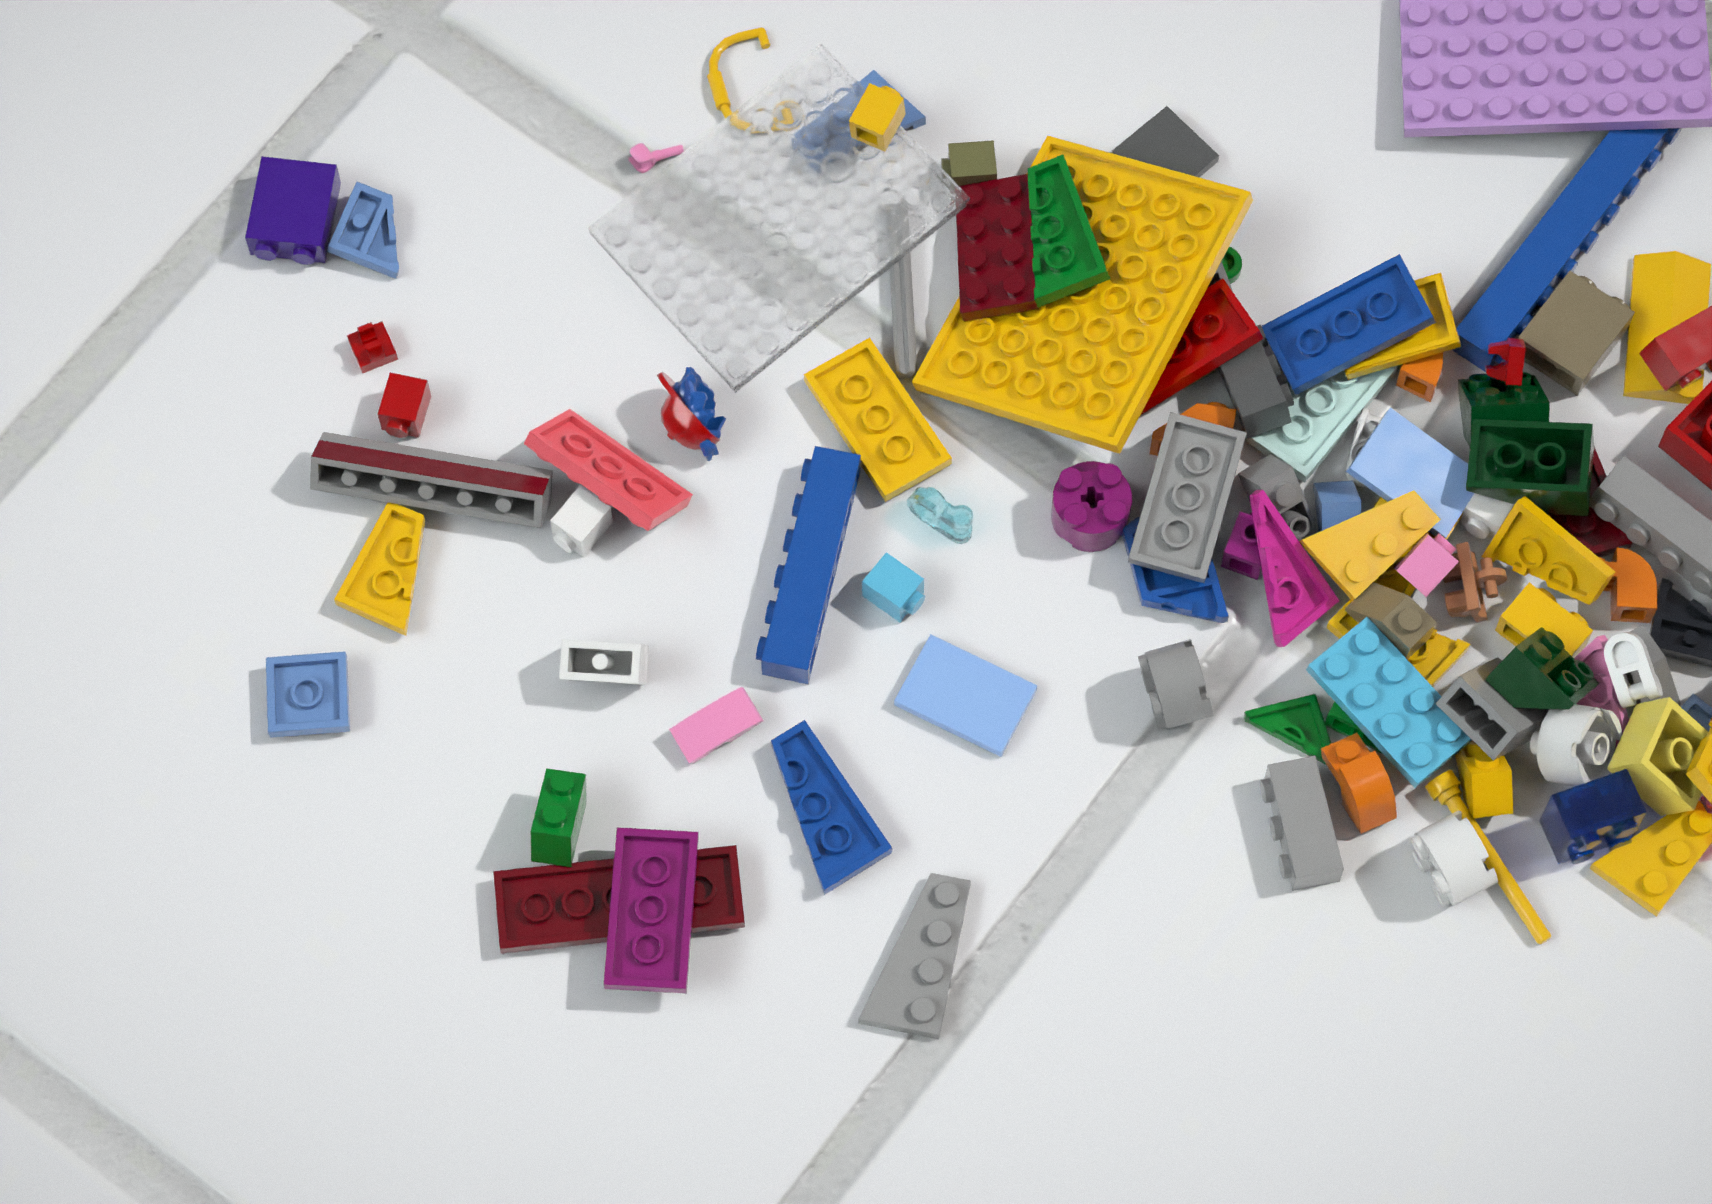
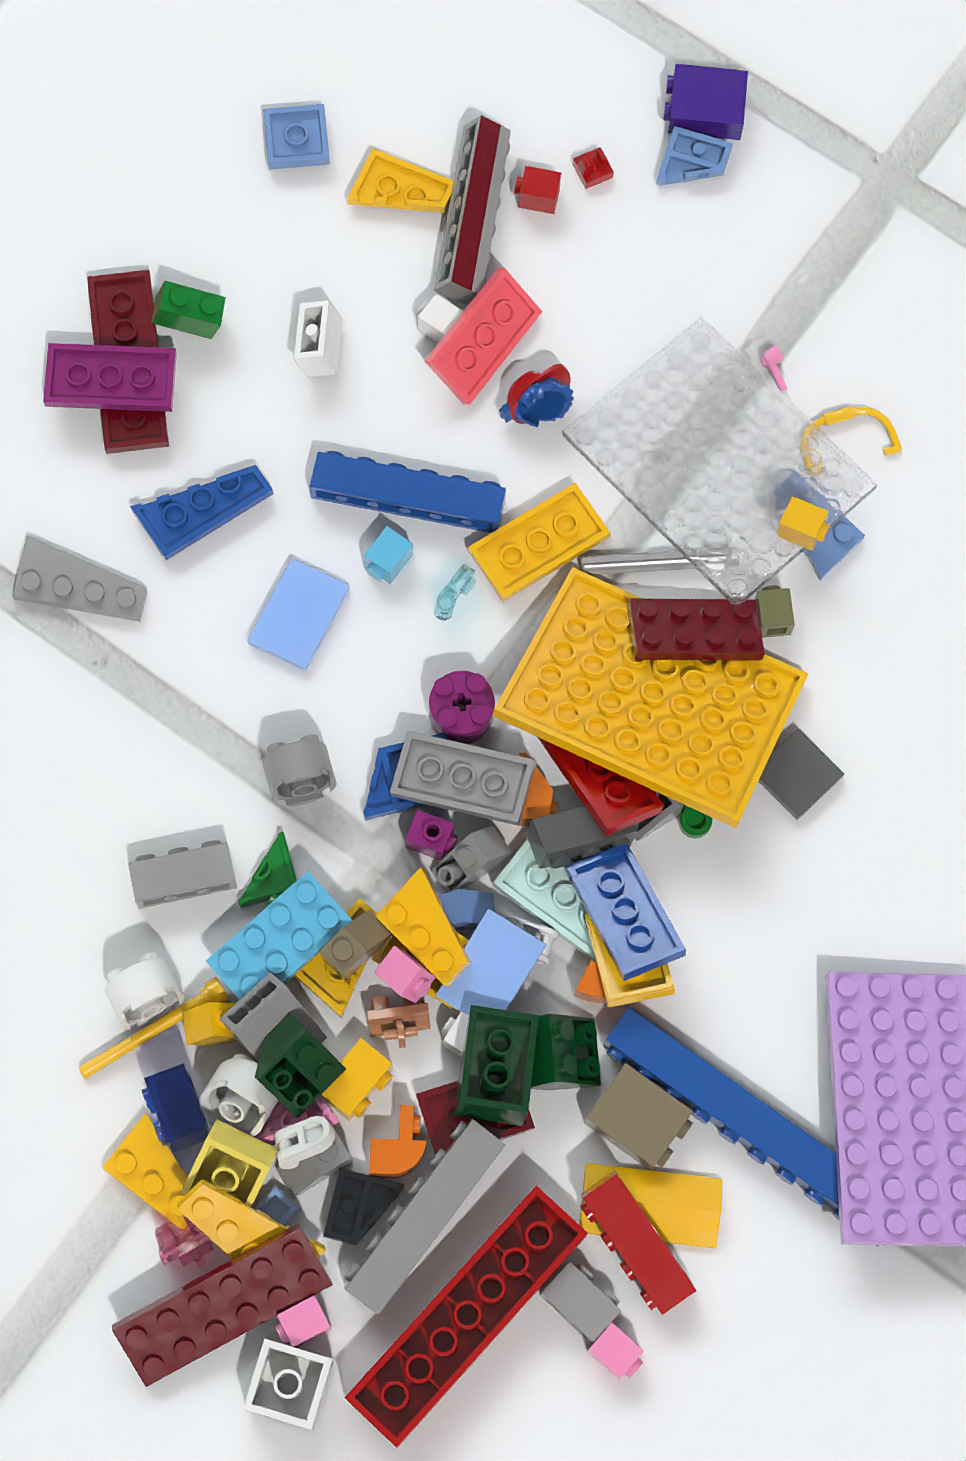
camera: 85 degrees right, 5 degrees up
(716, 724) = (270, 425): bright pink slope -> none
(1061, 235) = (702, 675): green wing -> none
(1292, 582) = (388, 868): dark pink wing -> none
(1363, 782) = (213, 917): orange brick -> none
(1512, 369) = (601, 1054): red tile -> none
(1546, 550) = (422, 1073): yellow wing -> none

